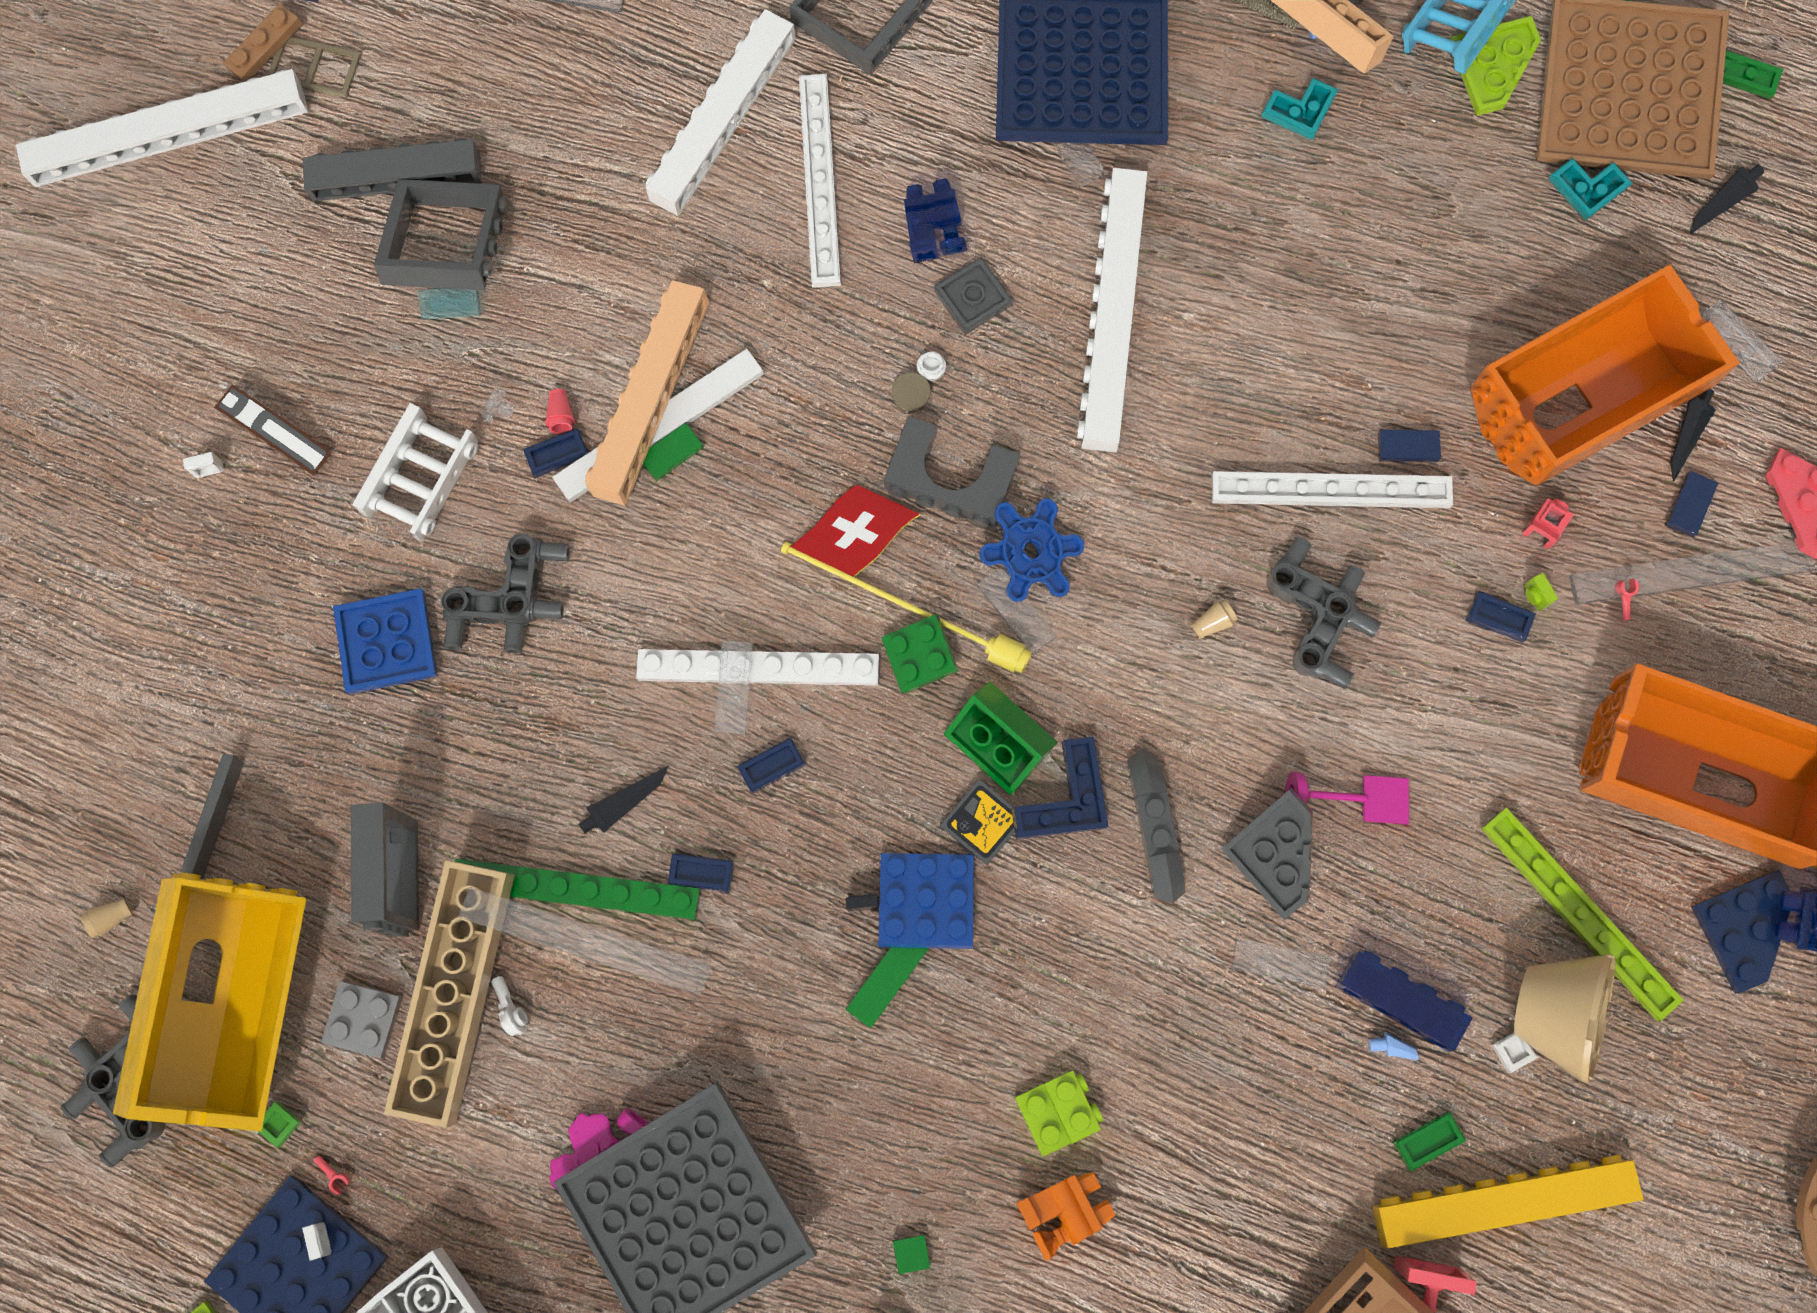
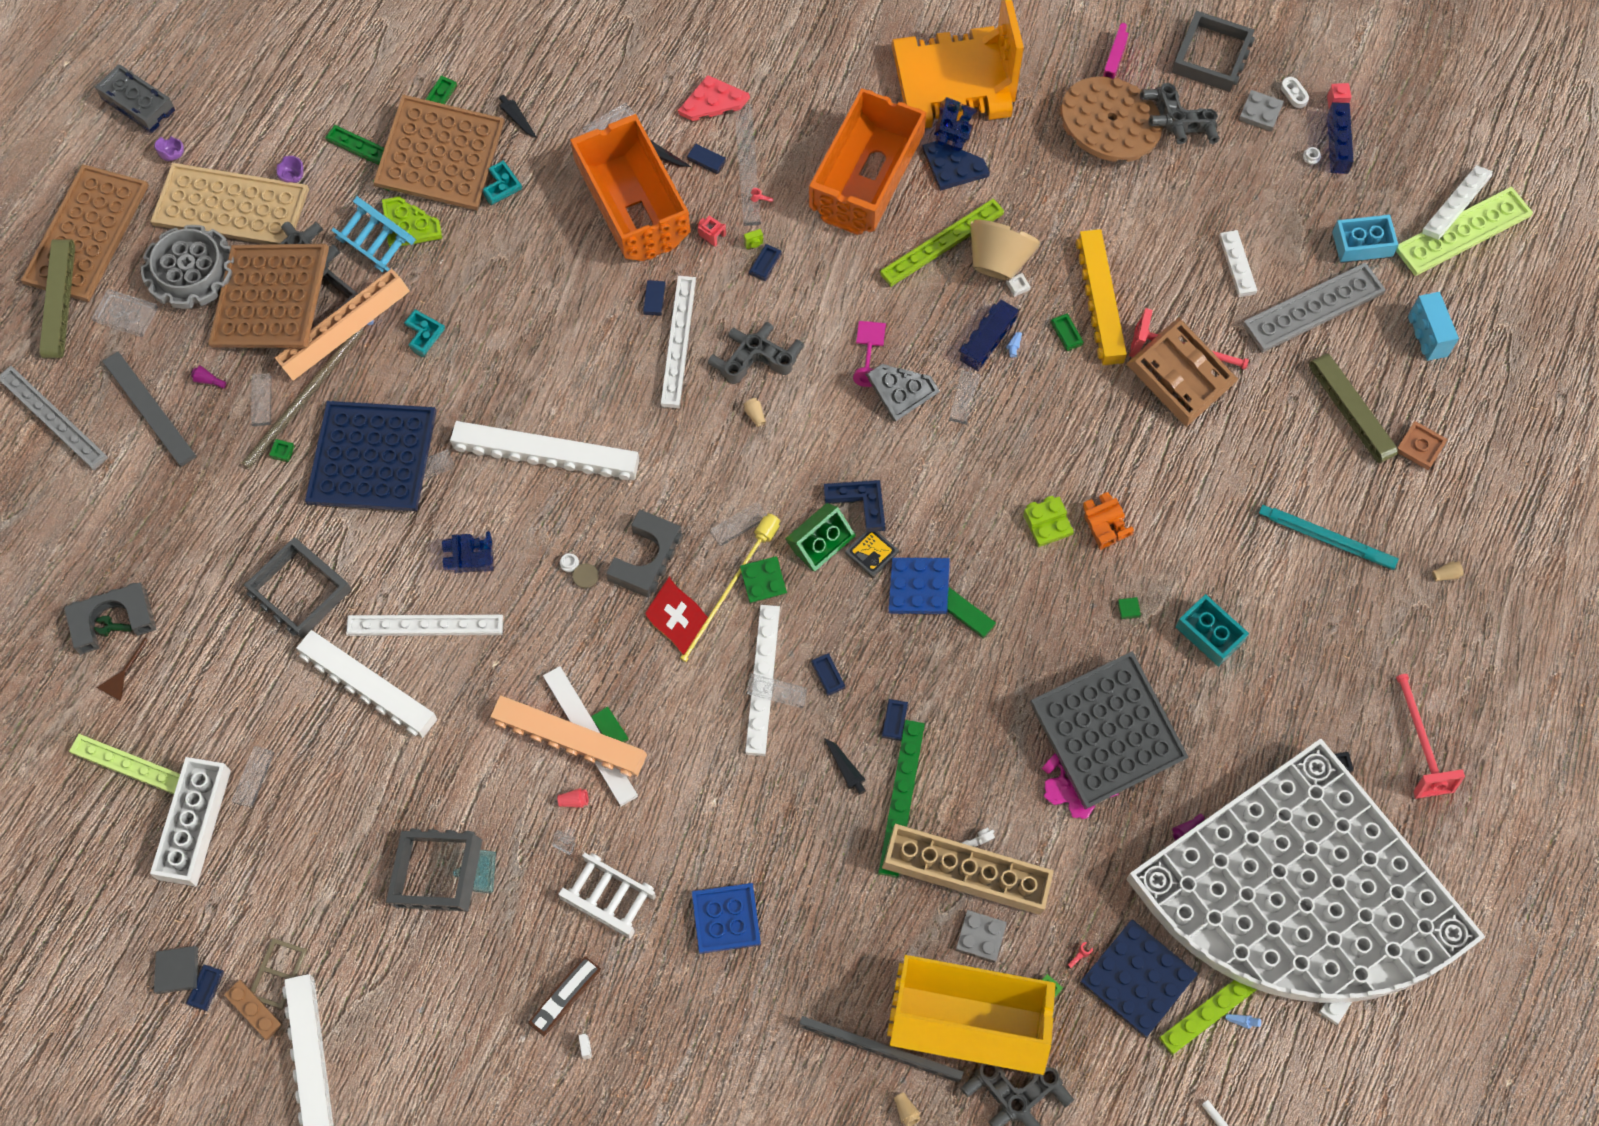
camera: 90 degrees left, 10 degrees down
(317, 1241) = (1123, 954): white tile -> none
(379, 169) = (373, 912): dark grey brick -> none
(384, 870) = (890, 900): dark grey window -> none
(496, 607) = (695, 826): dark grey pin -> none
(555, 452) = (601, 803): dark blue tile -> none
(584, 940) = (938, 784): clear tile -> none
(862, 903) = (919, 622): black tile -> none
(973, 295) = (523, 535): dark grey tile -> none
(1049, 544) = (702, 499): blue plate -> none
(1156, 826) = (880, 455): dark grey brick -> none

